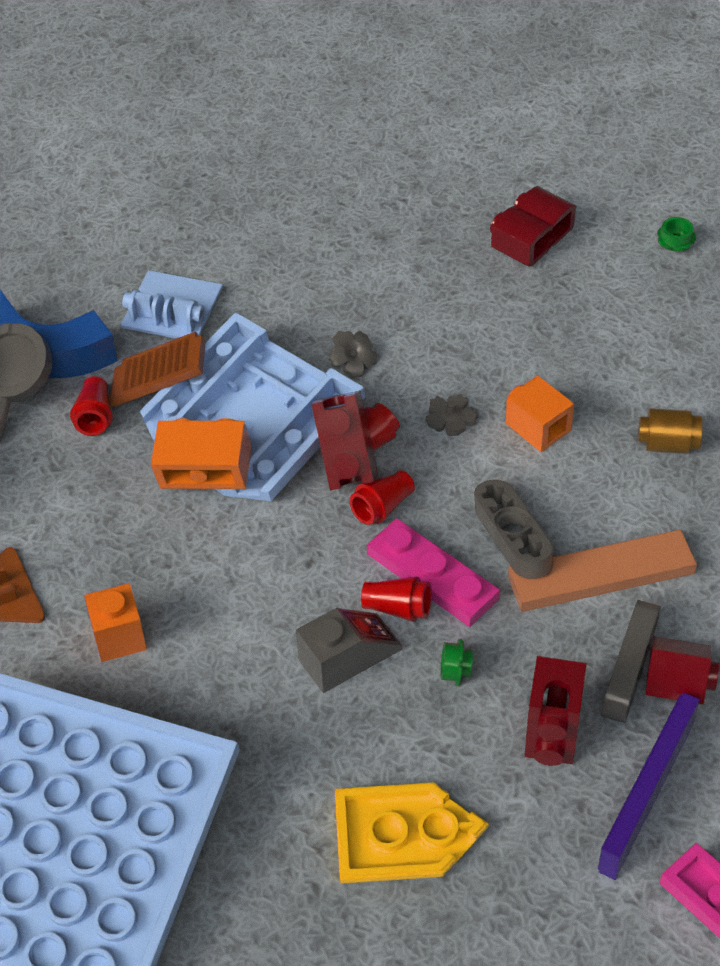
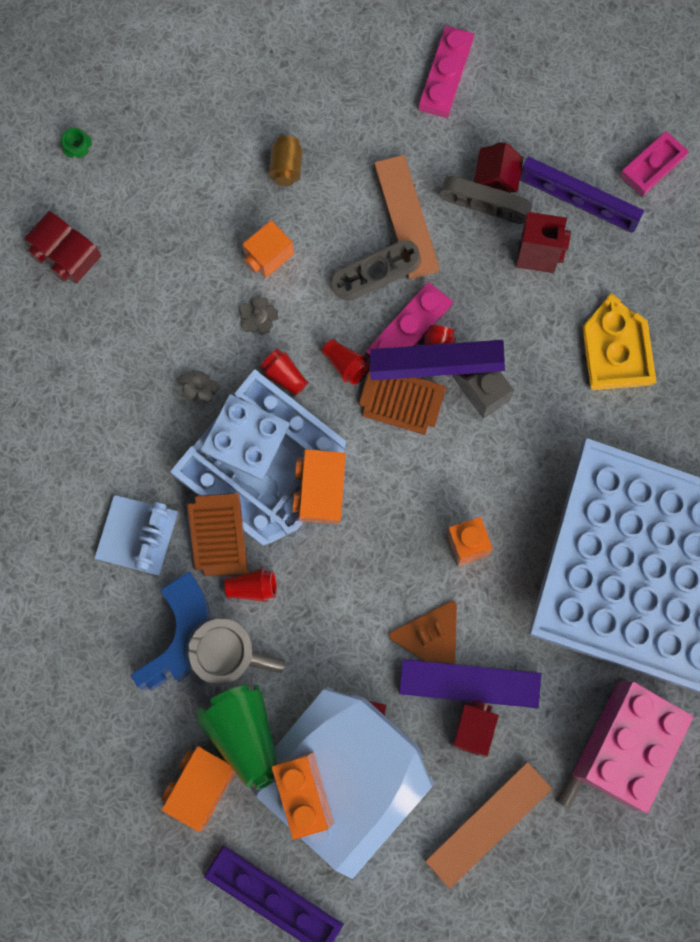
camera: 90 degrees left, 25 degrees up
(271, 379) = (245, 437): none -> light blue hinge
(327, 560) = (403, 402): none -> dark orange window
(345, 440) = (317, 380): dark red brick -> none
(369, 579) = (437, 360): none -> dark purple tile
(456, 662) = (489, 311): green plate -> none

